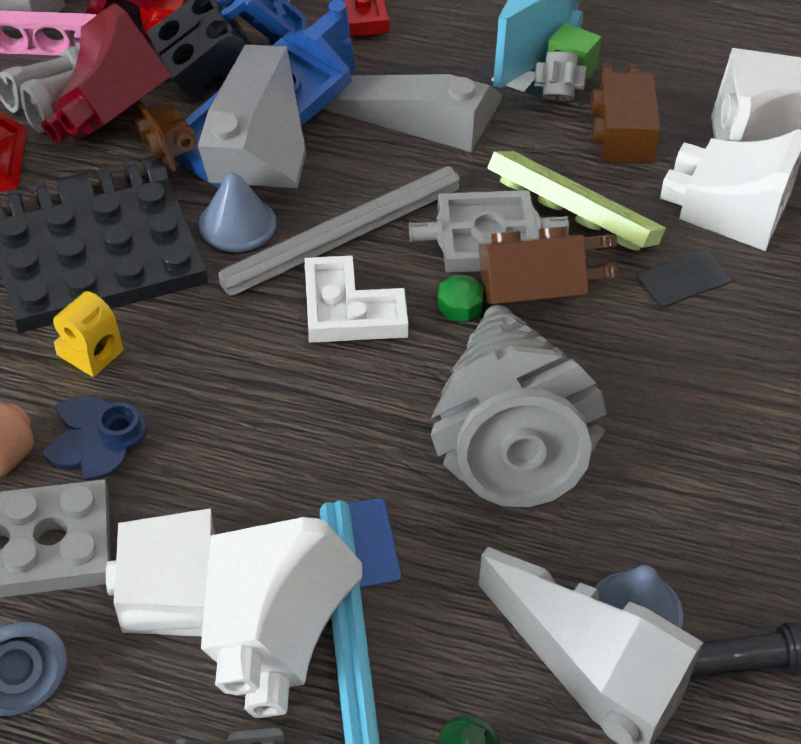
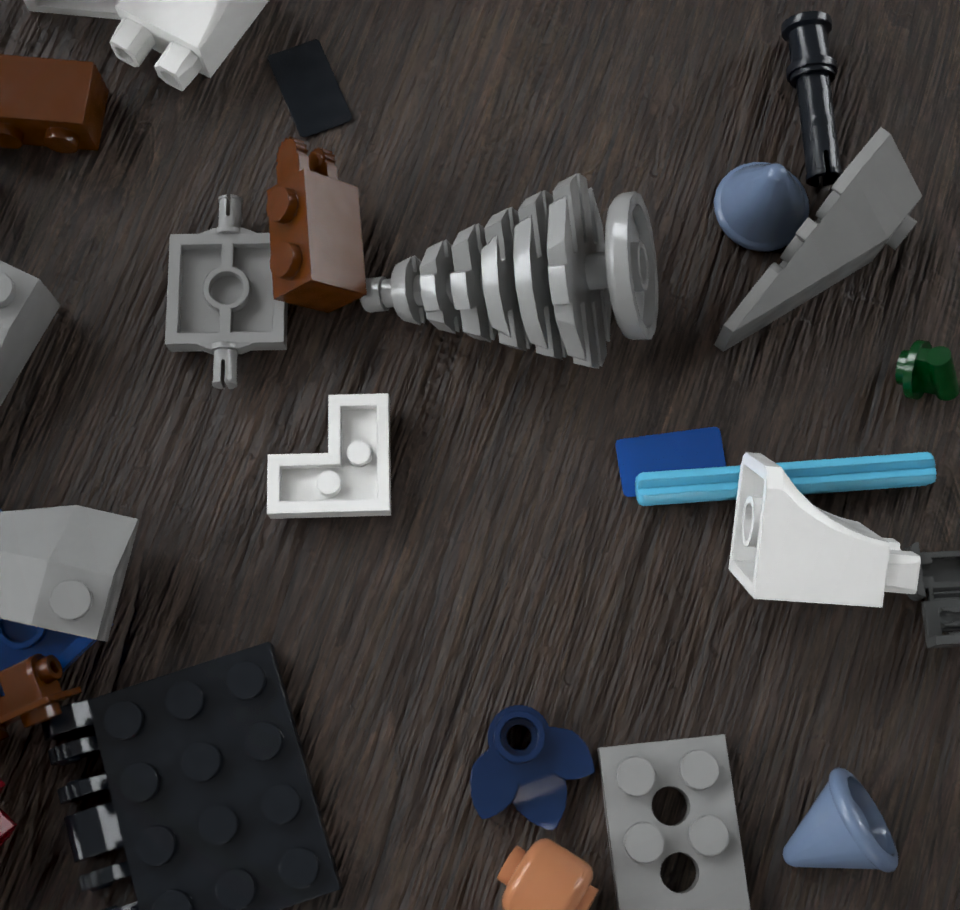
camera: 85 degrees left, 25 degrees up
(81, 328) = (379, 788): yellow leg -> none
(161, 573) = (735, 667): white torso -> none
(237, 218) = (172, 607): sand blue hat -> none
(337, 231) = (204, 473): light grey axle -> none
(460, 298) = (333, 335): green tile -> none
(591, 208) = (183, 184): yellowish green plate -> none

